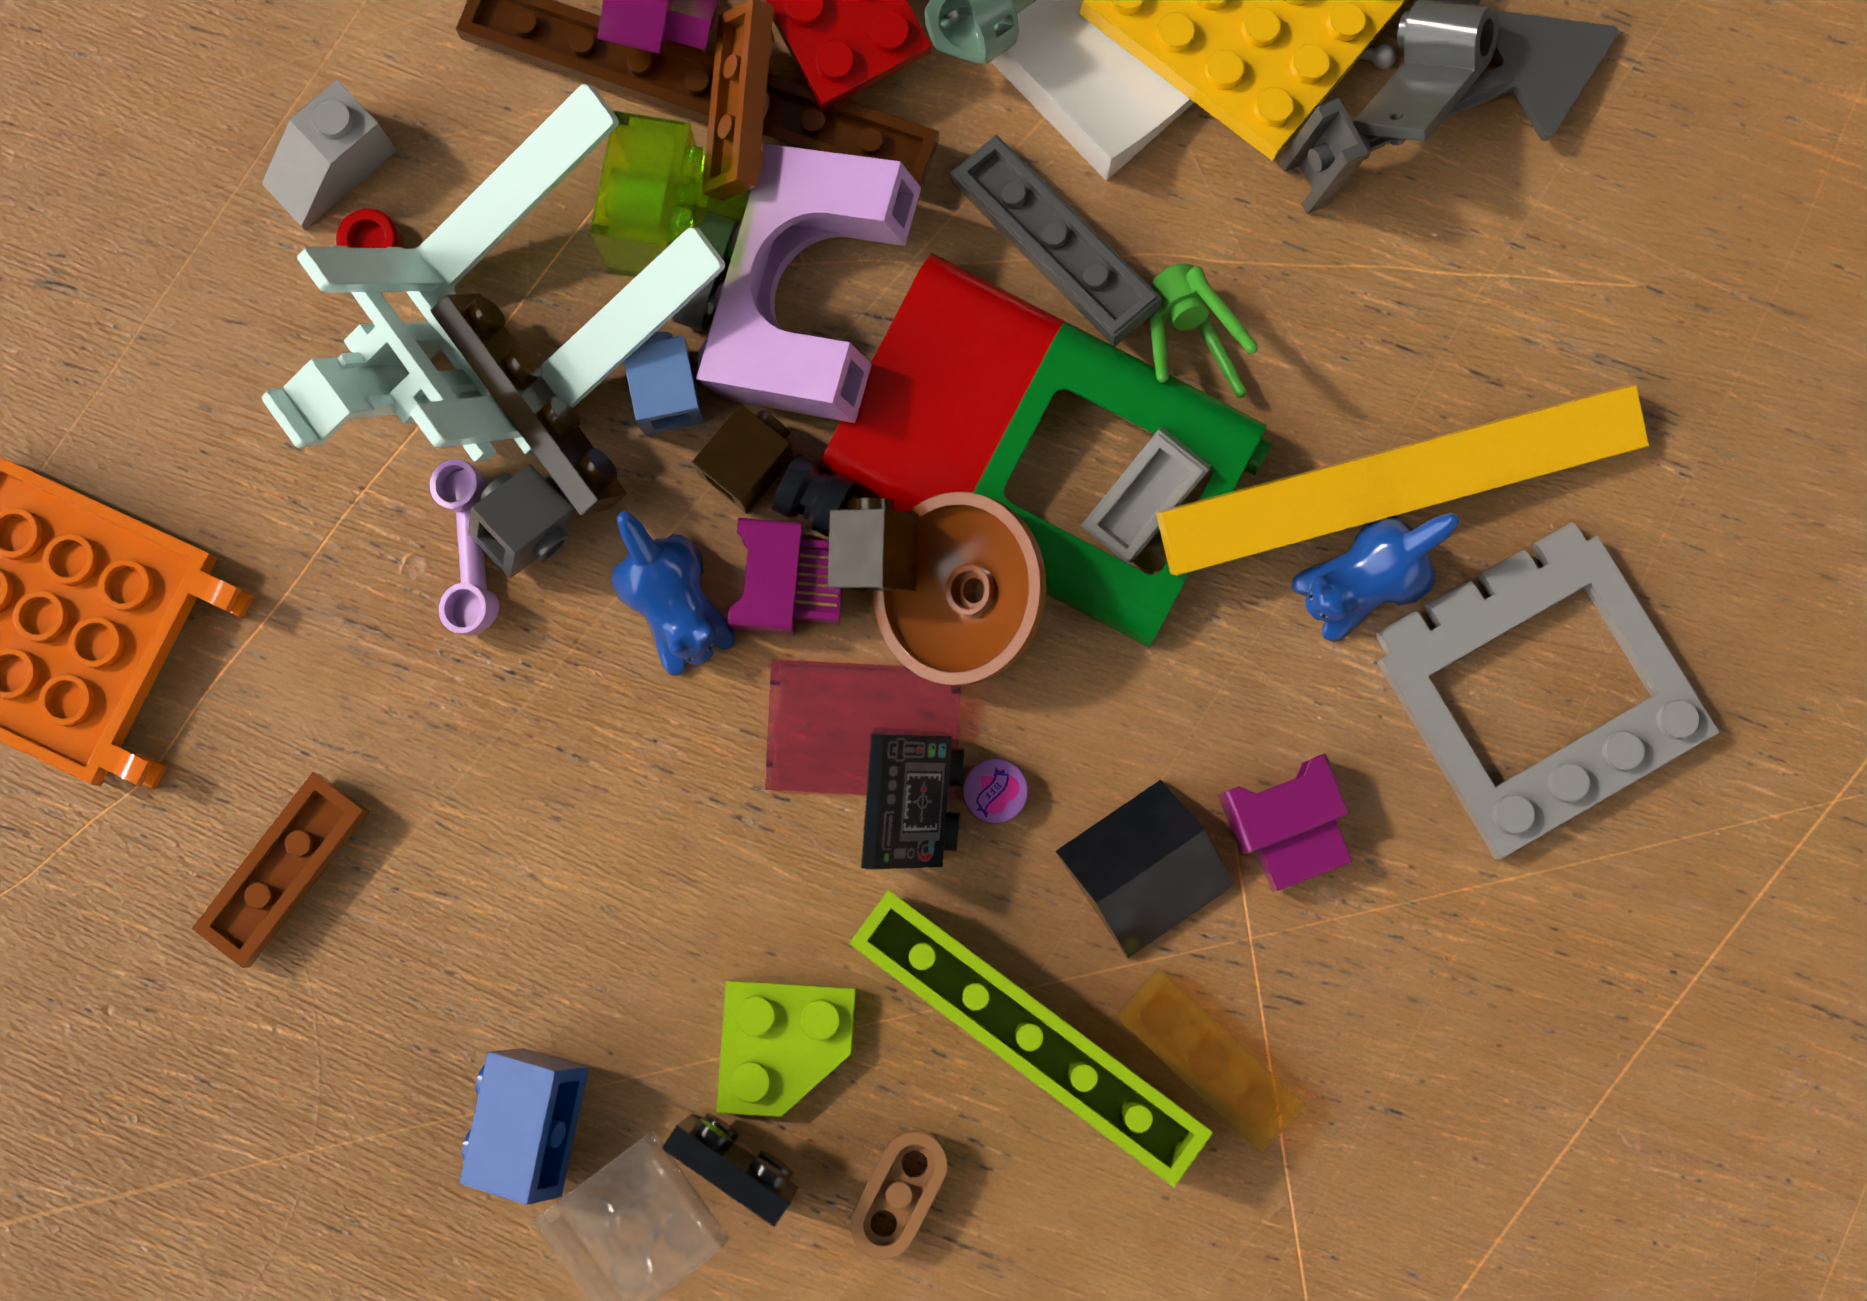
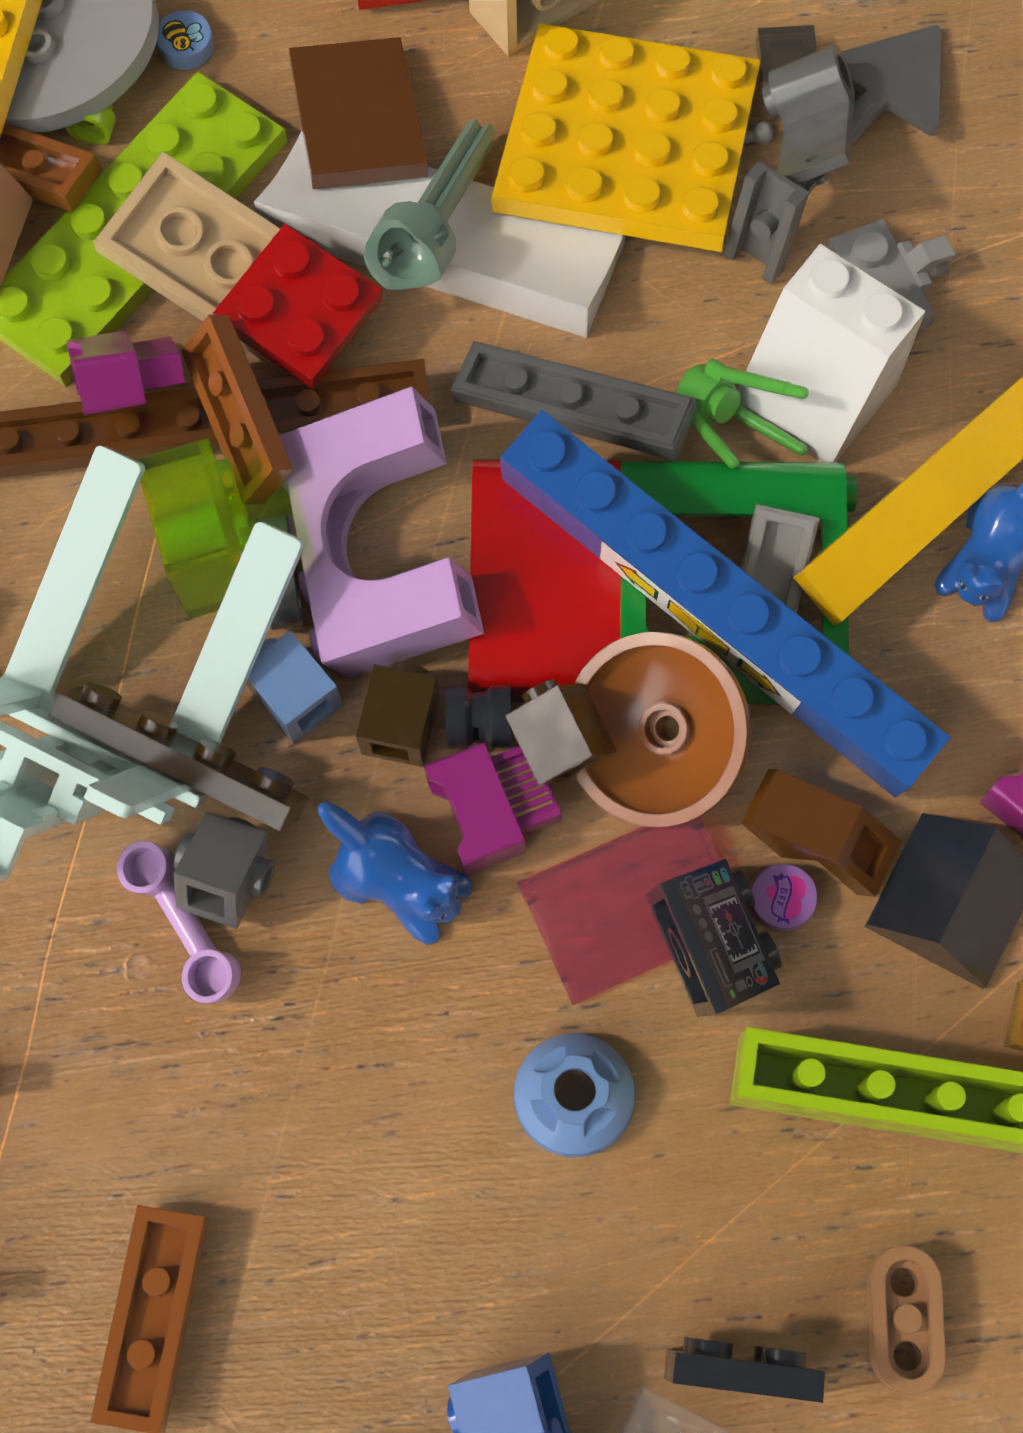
camera: 25 degrees left, 10 degrees down
(759, 875) = (568, 1131): none -> medium blue piece
(780, 1043) = (715, 1235): lime plate -> none
(1058, 751) = (822, 827): none -> reddish brown slope
(1072, 502) = (721, 605): none -> blue brick
(1312, 316) = (842, 342): none -> white slope
(1419, 263) = (898, 265): none -> light grey hinge

